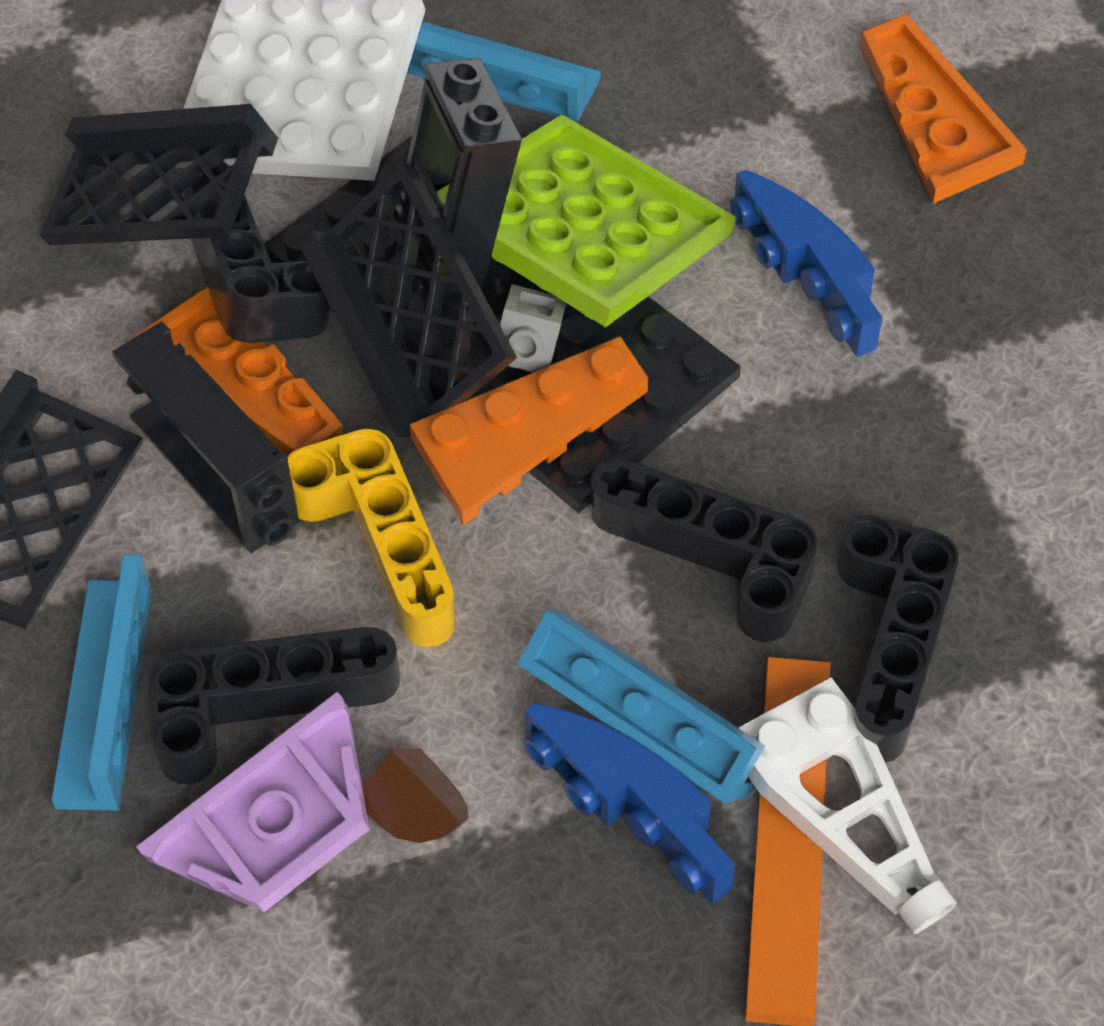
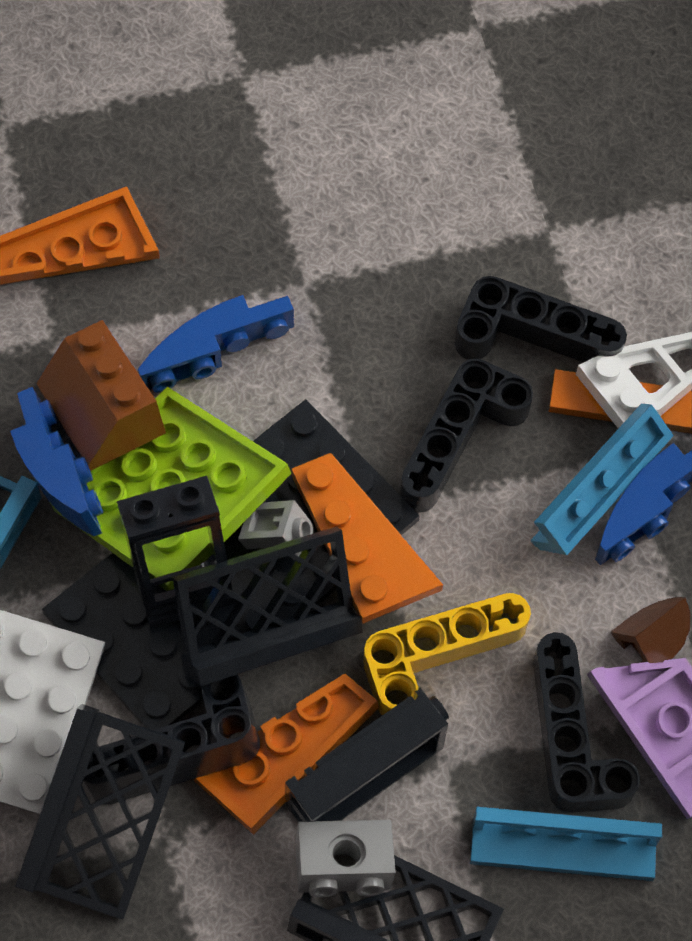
camera: 90 degrees left, 10 degrees up
(93, 455) = (363, 840): none -> light grey brick
(605, 93) = (54, 465): none -> blue slope
(704, 148) = (99, 396): none -> dark orange slope

